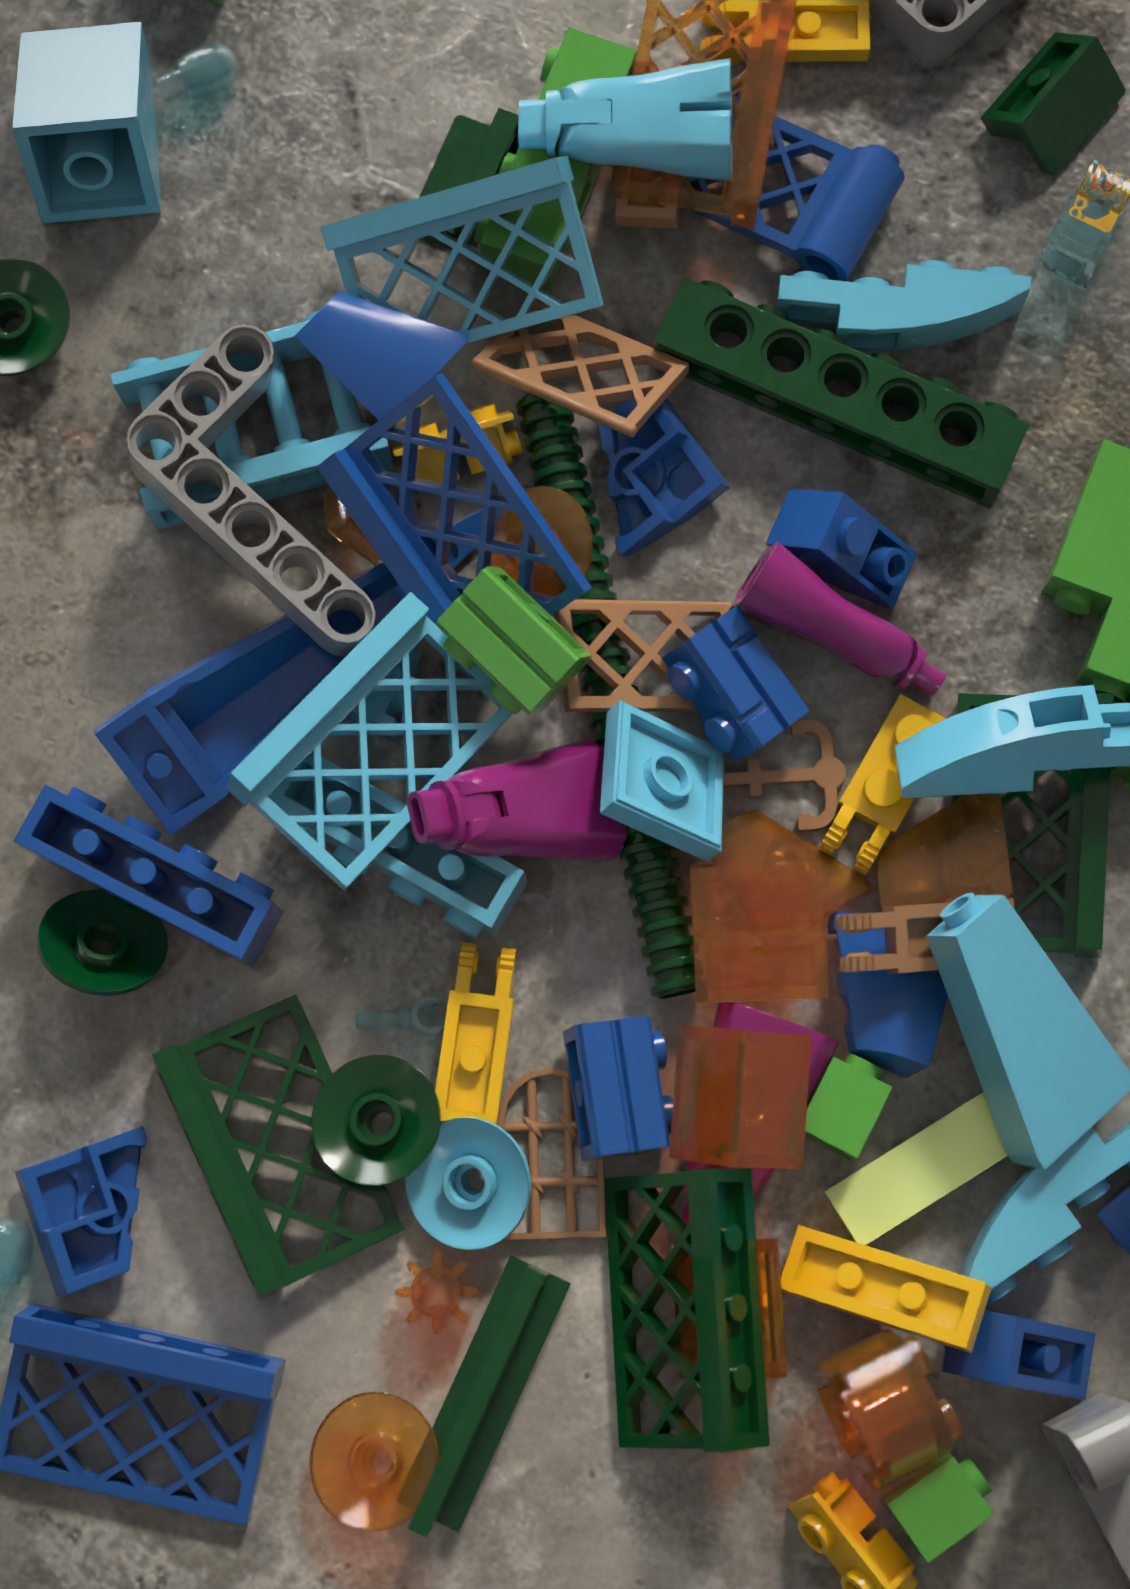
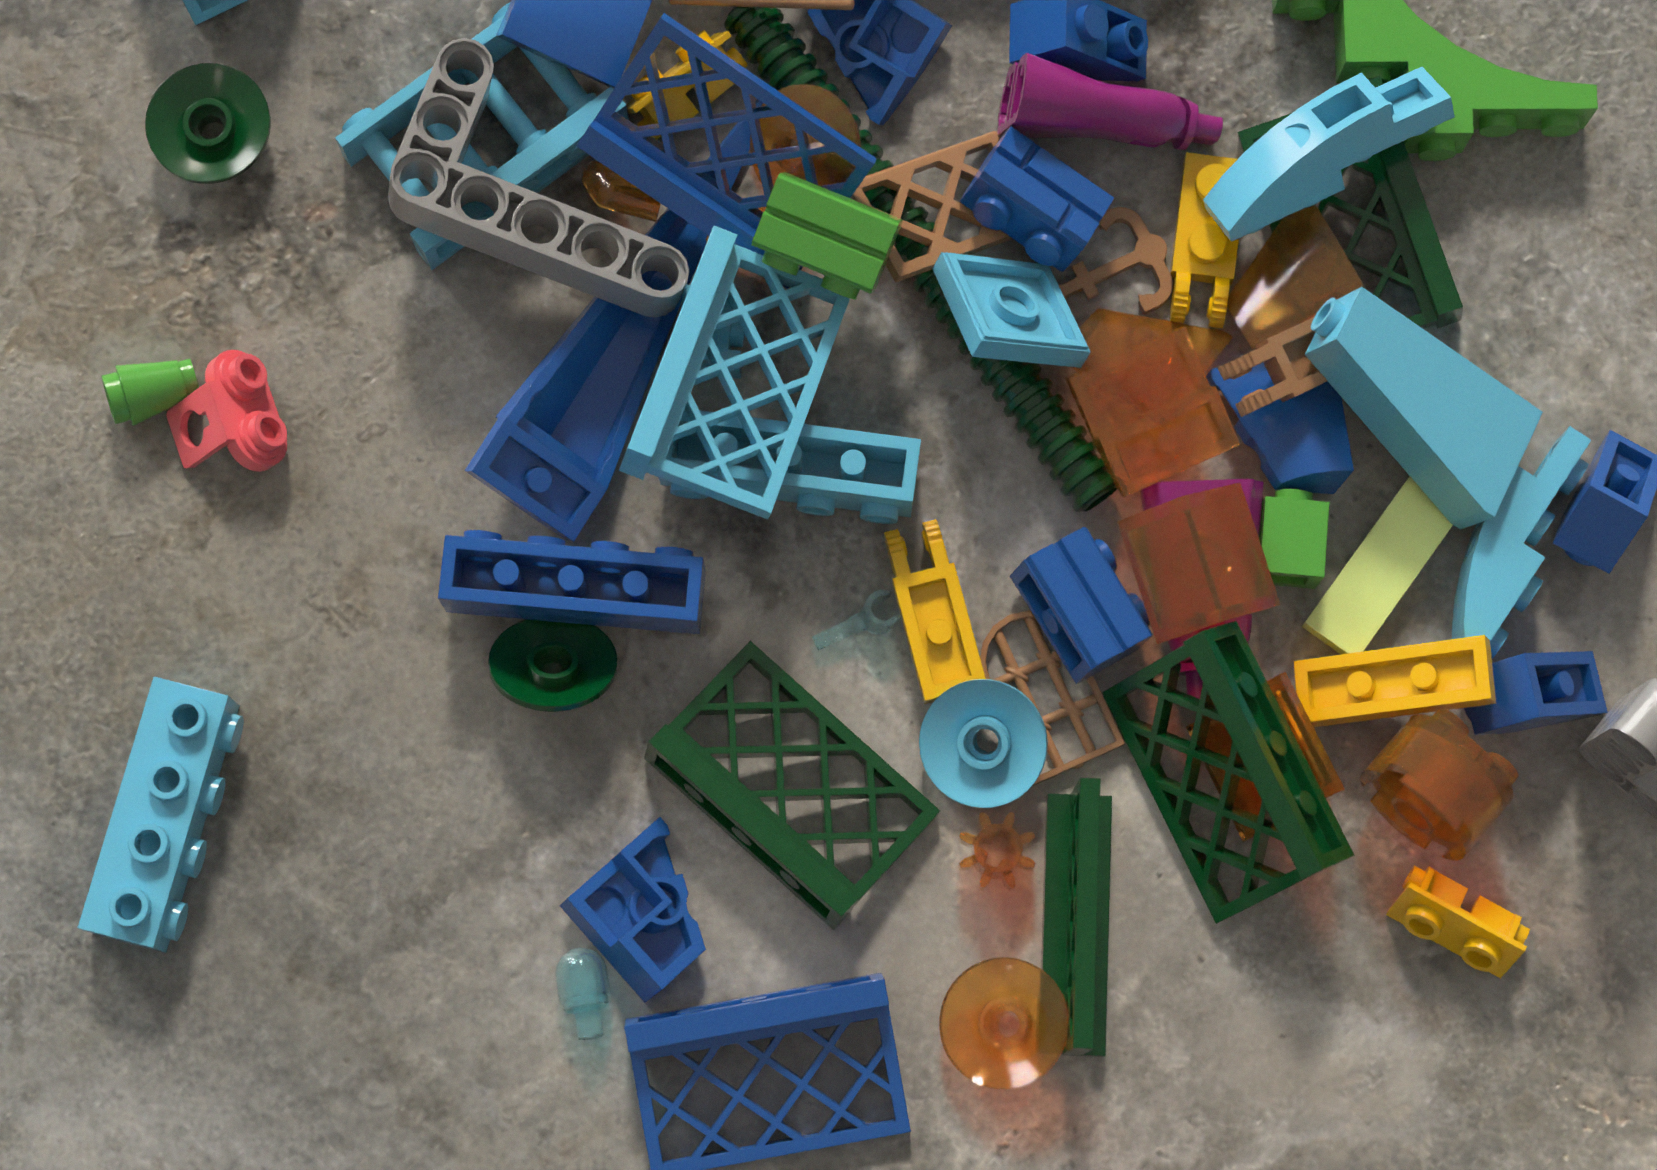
camera: 30 degrees left, 0 degrees up
(351, 1102) = (855, 697): dark green dish -> none
(523, 808) = (899, 381): magenta piece -> none
(940, 1504) = (1519, 853): bright green brick -> none

